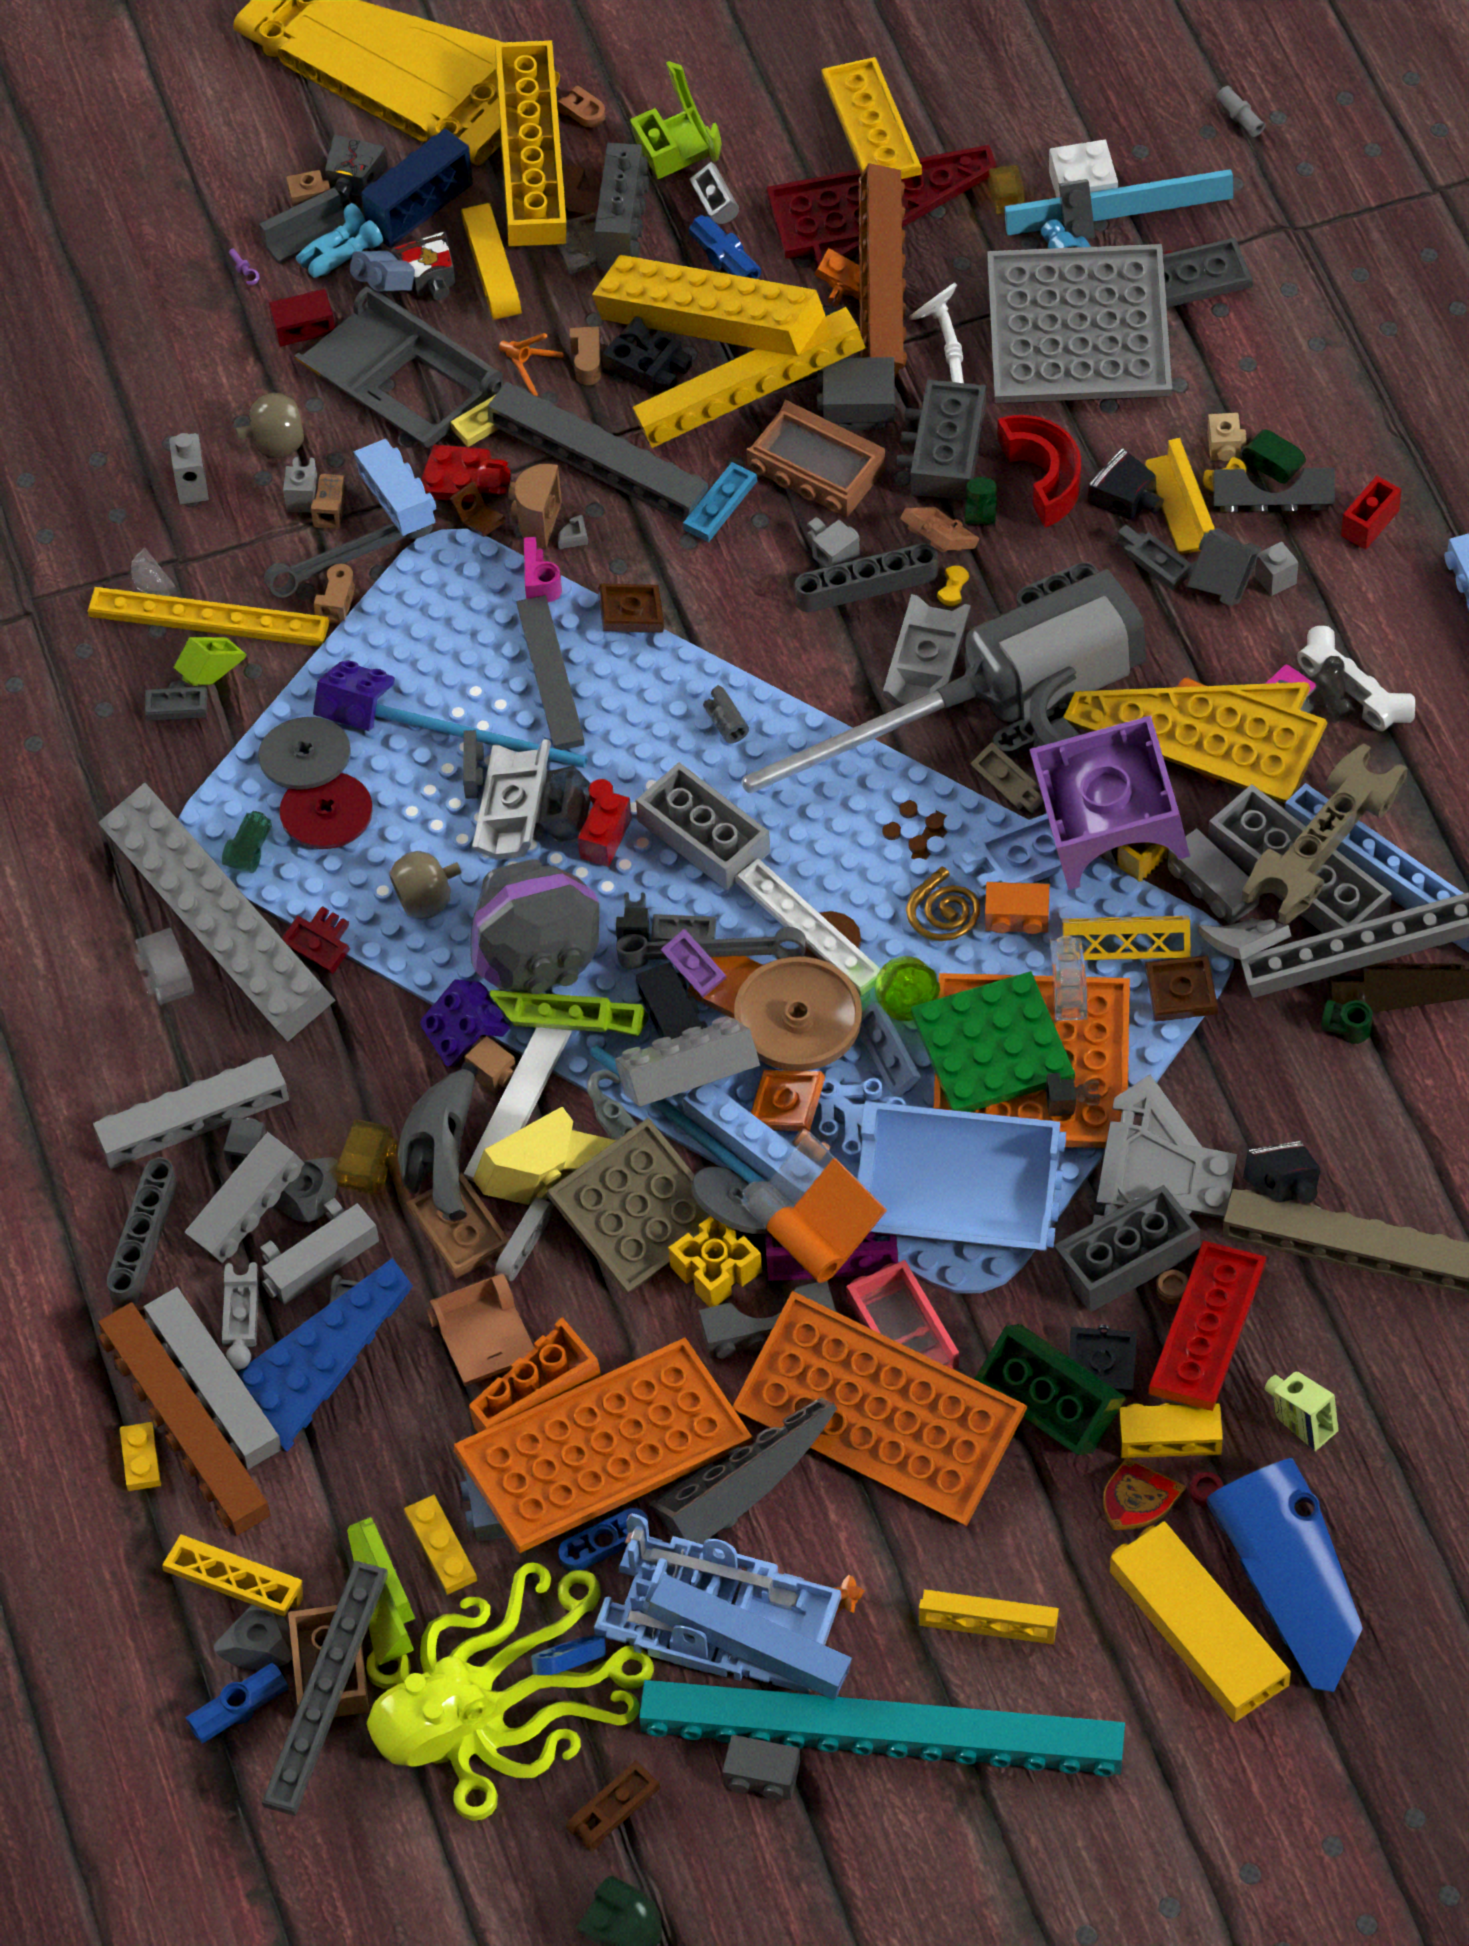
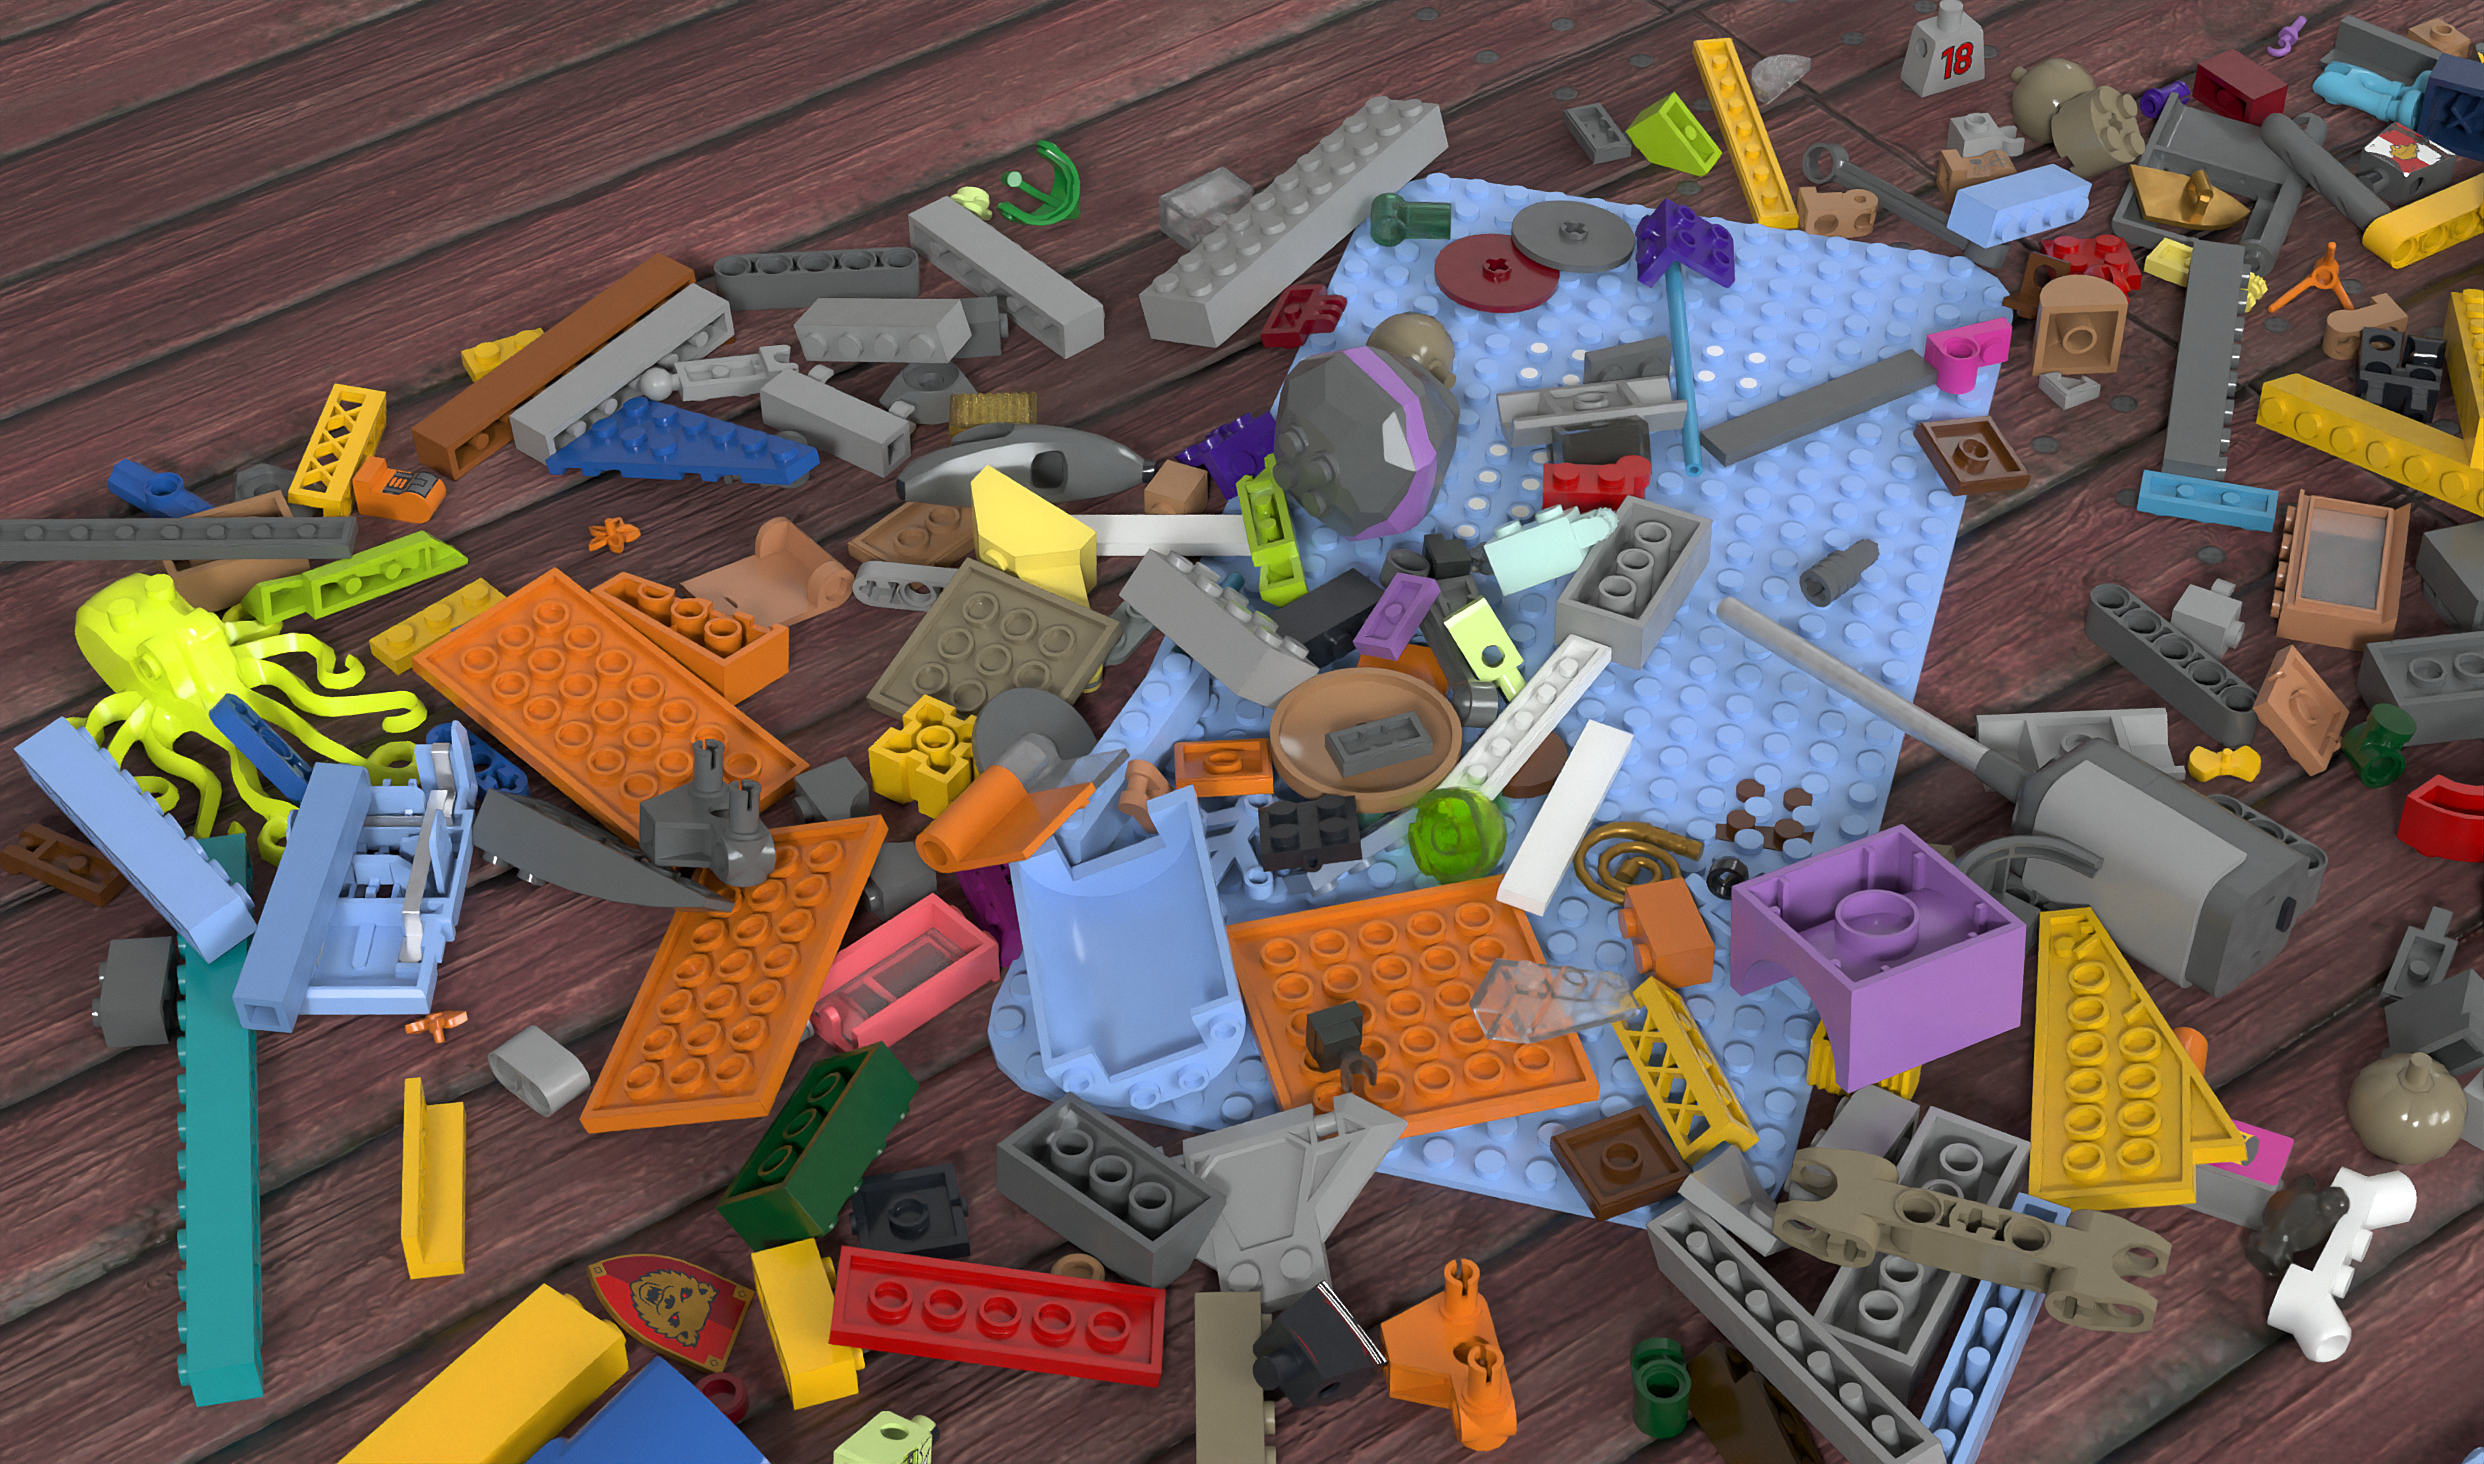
camera: 70 degrees right, 15 degrees down
(91, 1114) = (975, 200): none -> yellowish green plate
(105, 1062) = (1063, 201): none -> green helmet
(287, 1545) = (396, 493): none -> orange leg
(290, 367) = (2155, 99): none -> dark purple pin
(335, 413) = (2097, 131): none -> dark tan brick
(381, 1421) = (613, 534): none -> orange plant
(382, 271) = (2352, 121): sand blue brick -> none
(412, 396) = (2184, 200): none -> pearl gold shield
(436, 308) = (2322, 171): none -> dark grey piece
(633, 1743) = (138, 839): none -> light blue brick
(666, 857) = (1546, 547): none -> light aqua hinge
(751, 920) = (1476, 628): none -> yellowish green torso
(757, 1406) = (709, 824): none -> dark grey piece
(823, 1003) = (1378, 744): none -> dark grey plate
(880, 1064) = (1309, 829): none -> black plate
(899, 928) = (1564, 818): none -> white tile
(913, 1541) = (539, 1070): none -> light grey beam
(991, 1042) = (1401, 945): green plate -> none
(995, 858) = (1738, 874): none -> black hinge
(1266, 606) = (2407, 1108): none -> dark tan piece
(1298, 1116) = (1451, 1359): none -> orange piece

